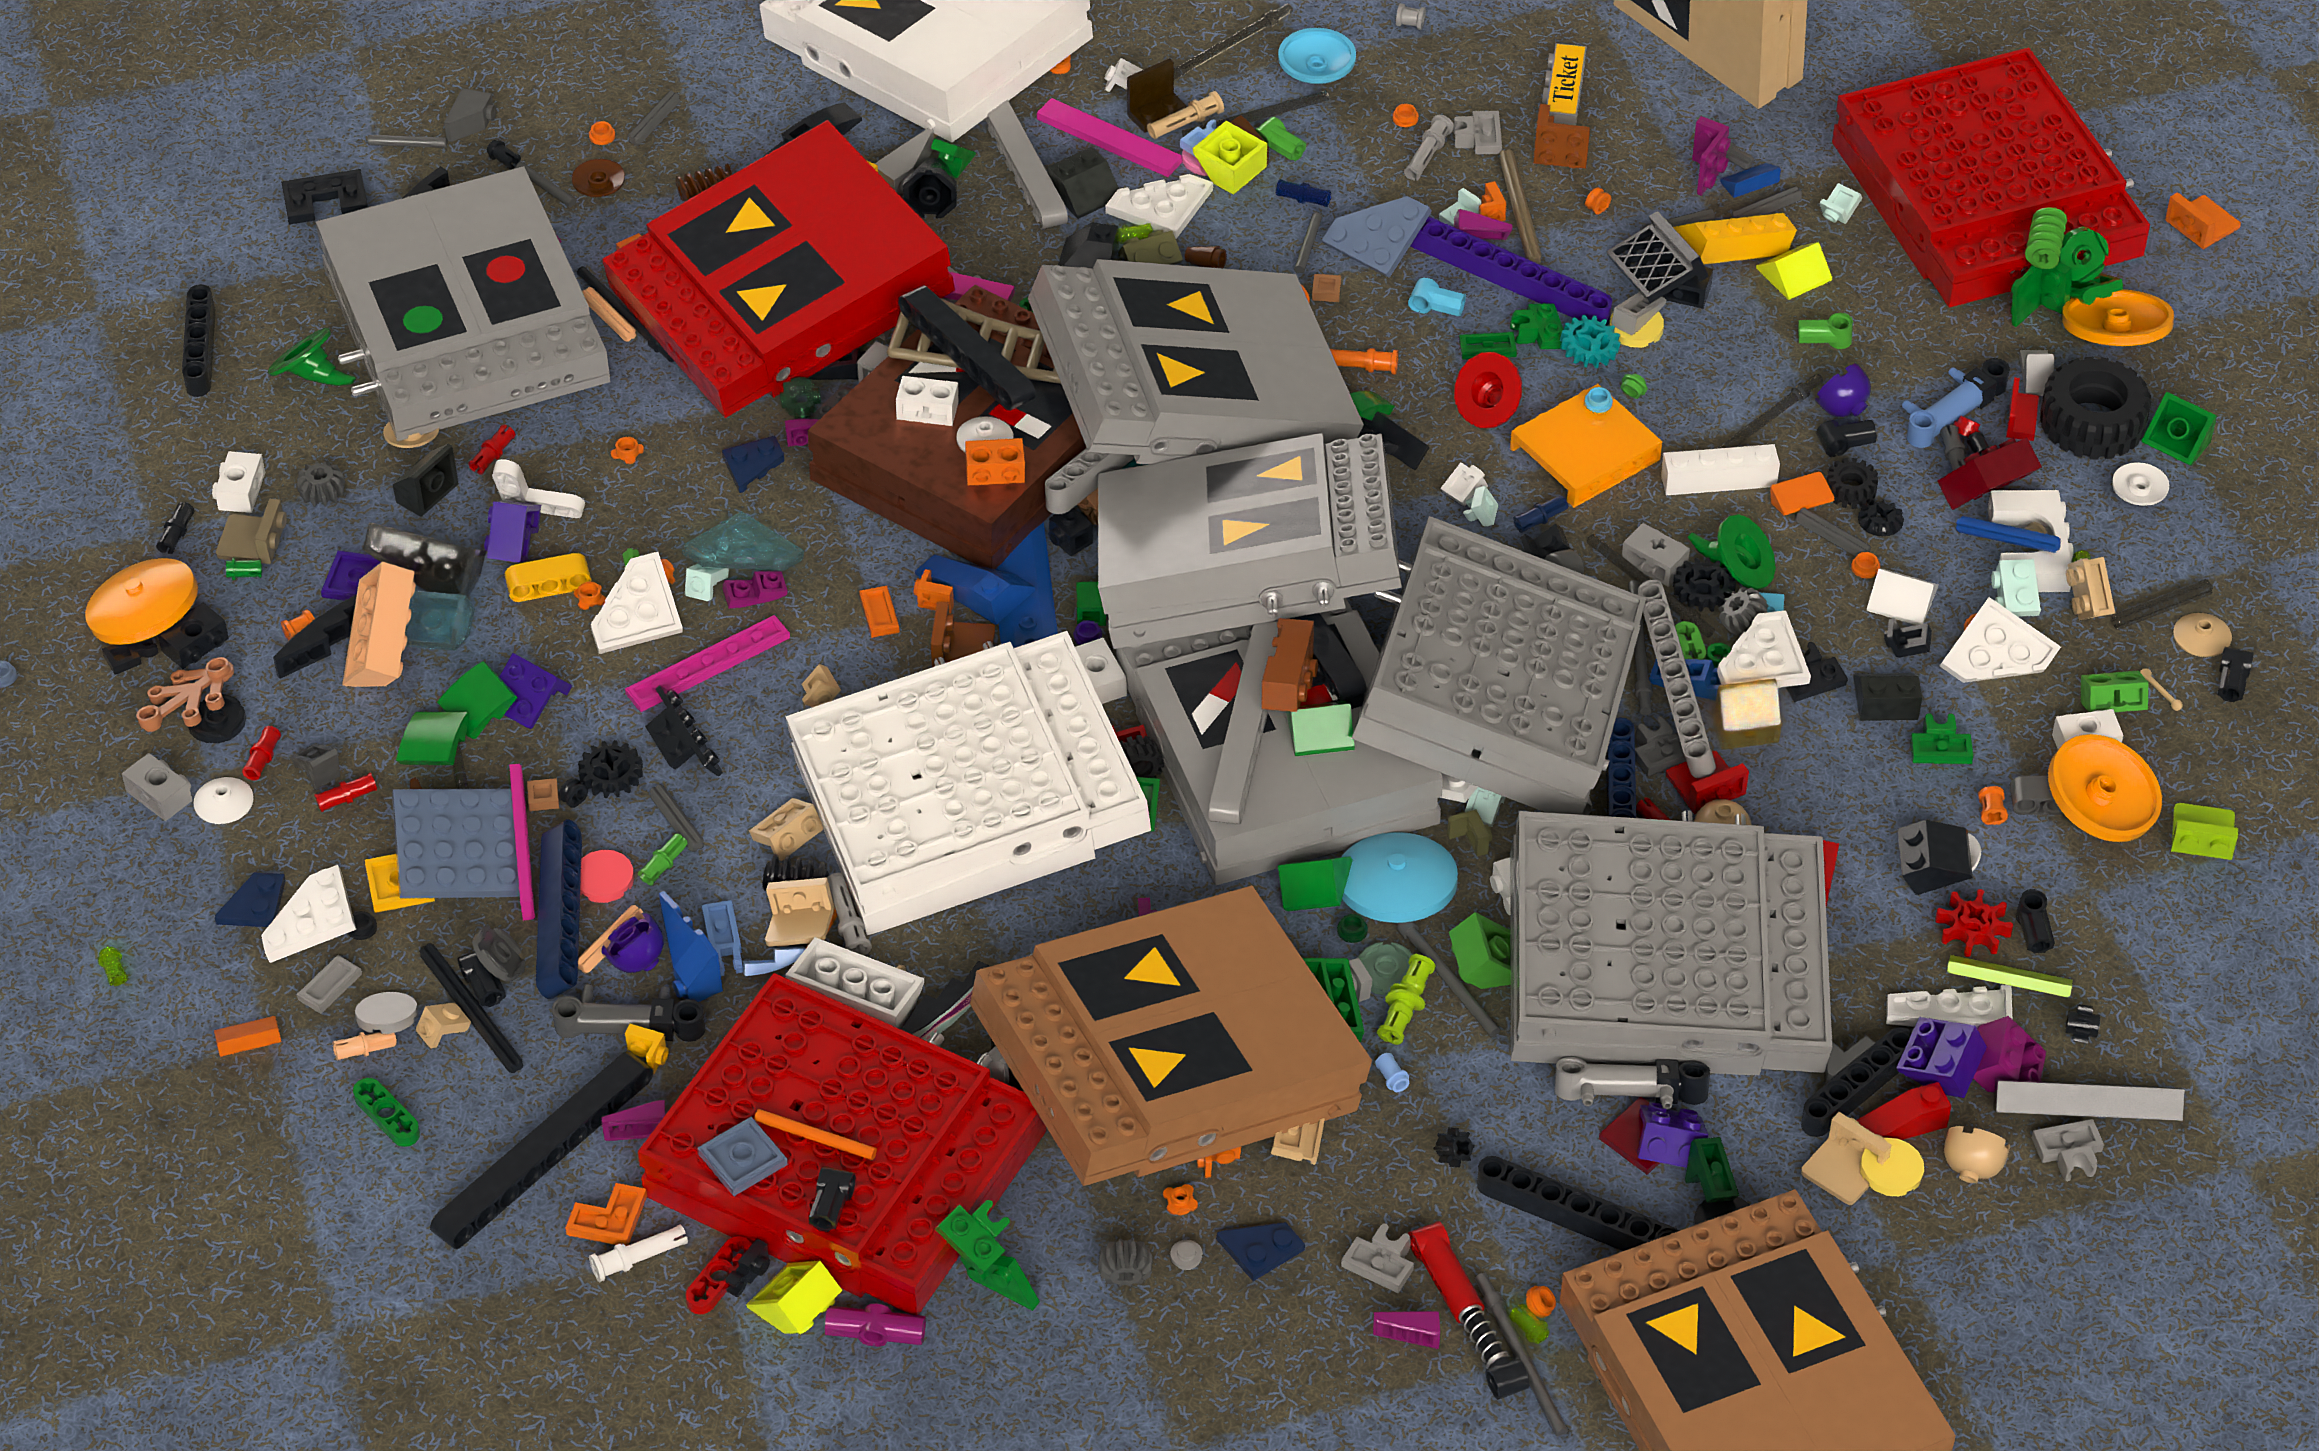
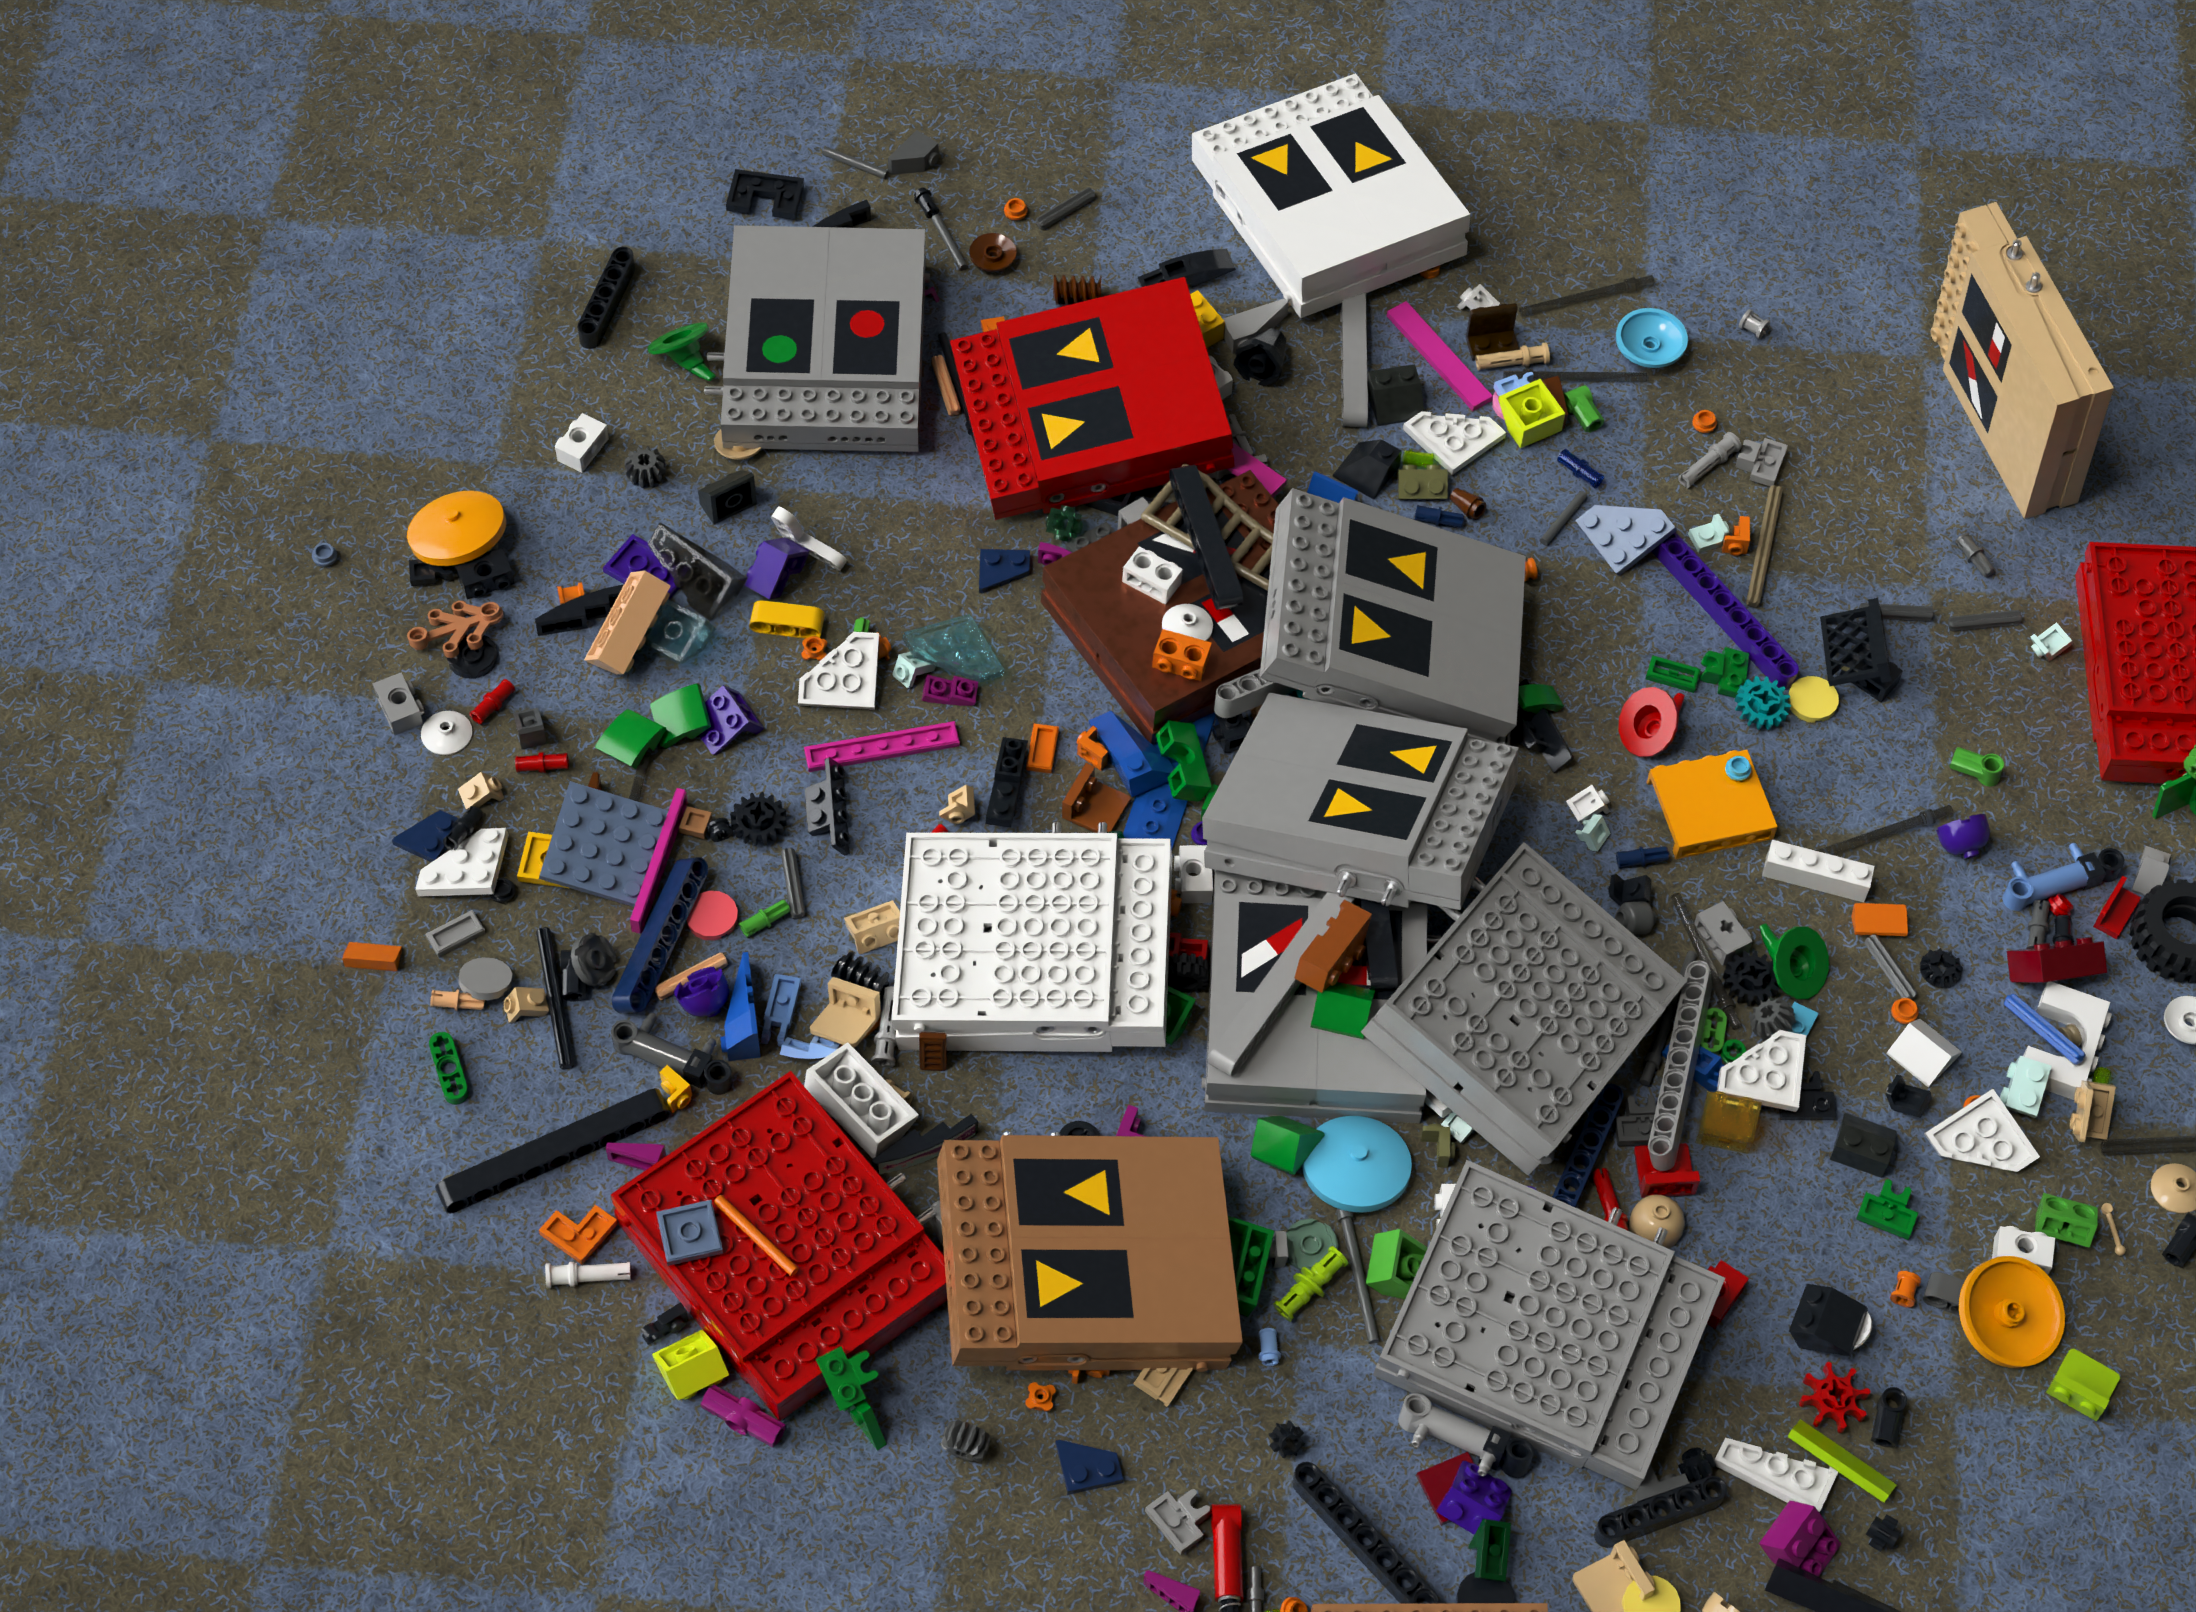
camera: 20 degrees right, 10 degrees up
(110, 960) = (296, 854): clear neon green pin -> none
(175, 528) = (515, 467): black pin -> none
(243, 568) = (551, 524): green pin -> none
(253, 536) = (570, 496): dark tan bracket -> none
(289, 879) = (462, 828): none -> black pin
(290, 840) = (480, 790): none -> tan bracket
(492, 449) = (795, 482): red pin -> none
(627, 449) = (904, 515): orange plate -> none
(716, 1289) = (644, 1308): red beam -> none
(832, 1190) = (744, 1295): black piece -> none
(858, 648) = (1007, 782): none -> black slope
(908, 921) = (933, 1051): none -> reddish brown slope
(954, 156) = (1296, 330): green slope -> none
(1050, 581) = (1190, 777): none -> green arch
(1186, 1254) = (1022, 1449): light grey plate -> none
(1326, 288) = (1557, 569): medium nougat plate -> none
(1352, 928) = (1298, 1197): dark green plate -> none
(1370, 360) = (1562, 653): orange pin -> none
(1429, 296) = (1642, 608): medium azure piece -> none
(1481, 226) = (1715, 555): magenta slope -> none
(1560, 143) = (1824, 498): dark orange bracket -> none
(1565, 82) = (1857, 441): brick -> none
(1598, 200) = (1835, 564): orange bush -> none
(1633, 385) = (1781, 759): bright green plate -> none
(1634, 314) = (1807, 697): light grey slope -> none
(1710, 151) = (1957, 551): magenta bracket -> none
(1739, 237) = (1938, 646): yellow slope -> none
(1751, 179) = (1983, 588): blue slope -> none
(1797, 270) = (1981, 694): neon yellow slope -> none
(1839, 438) = (1938, 876): black piece -> none
(1855, 472) = (1933, 912): black tyre -> none
(1872, 1025) = (1696, 1464): none -> black gear
(1910, 1114) = (1684, 1561): red slope -> none
(1943, 1054) = (1741, 1520): dark purple slope -> none

